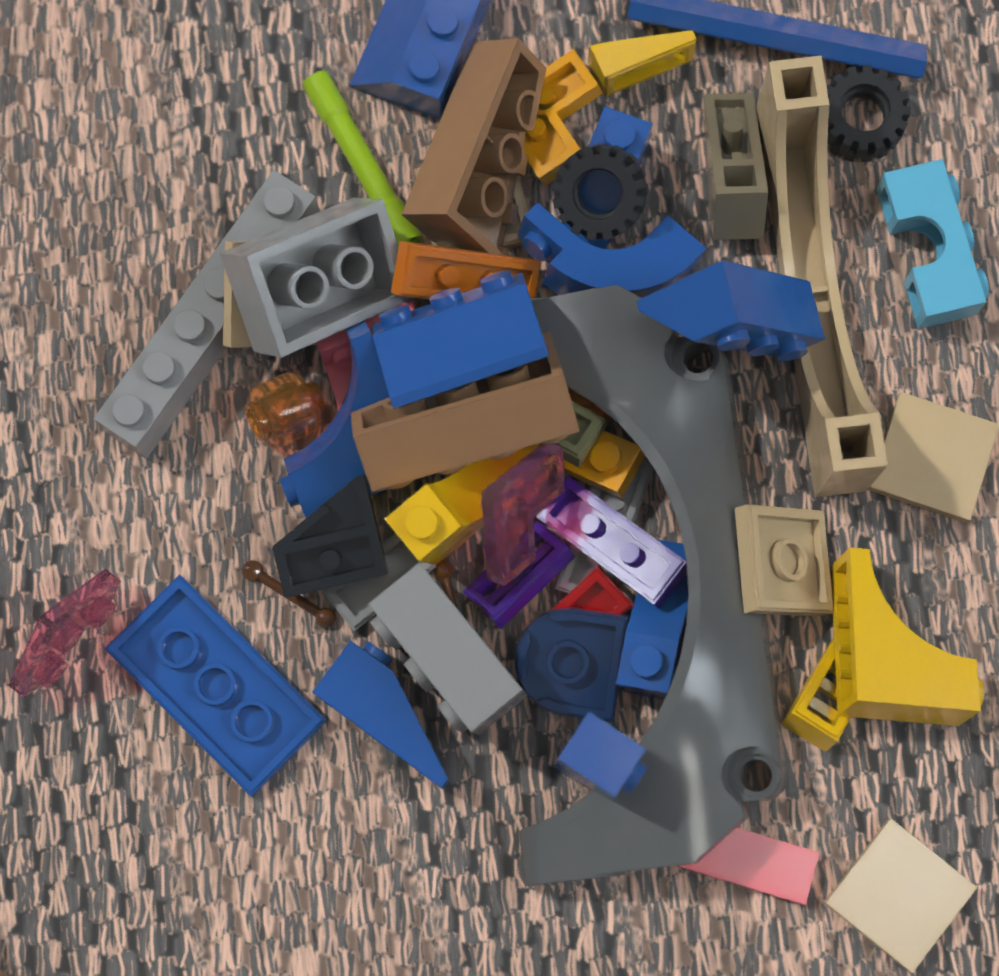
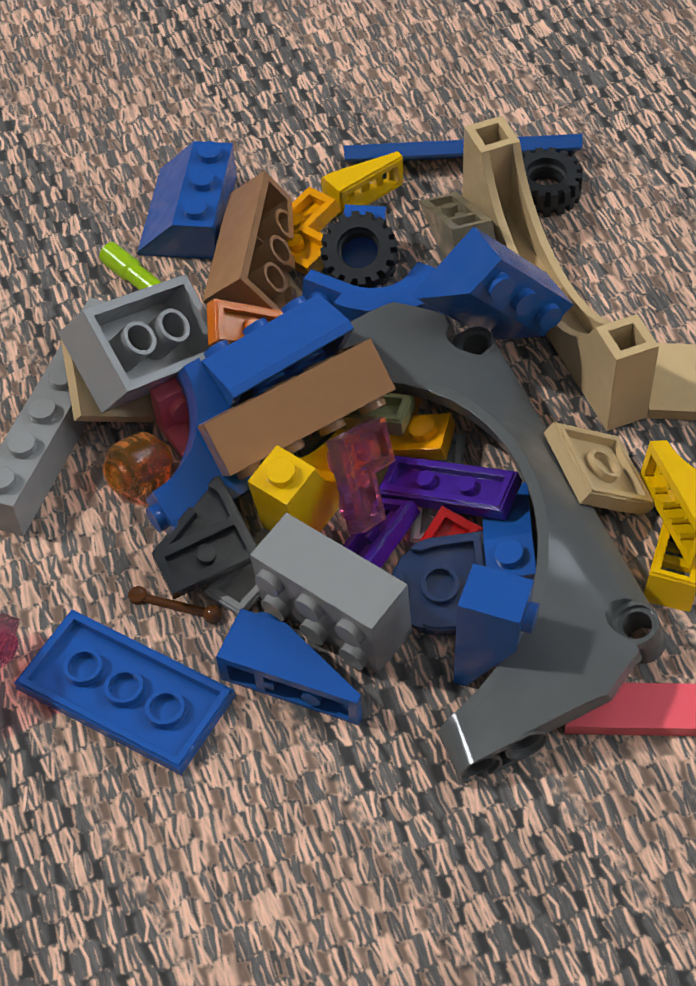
camera: 15 degrees left, 25 degrees down
(926, 202) = (654, 262): medium azure arch -> none

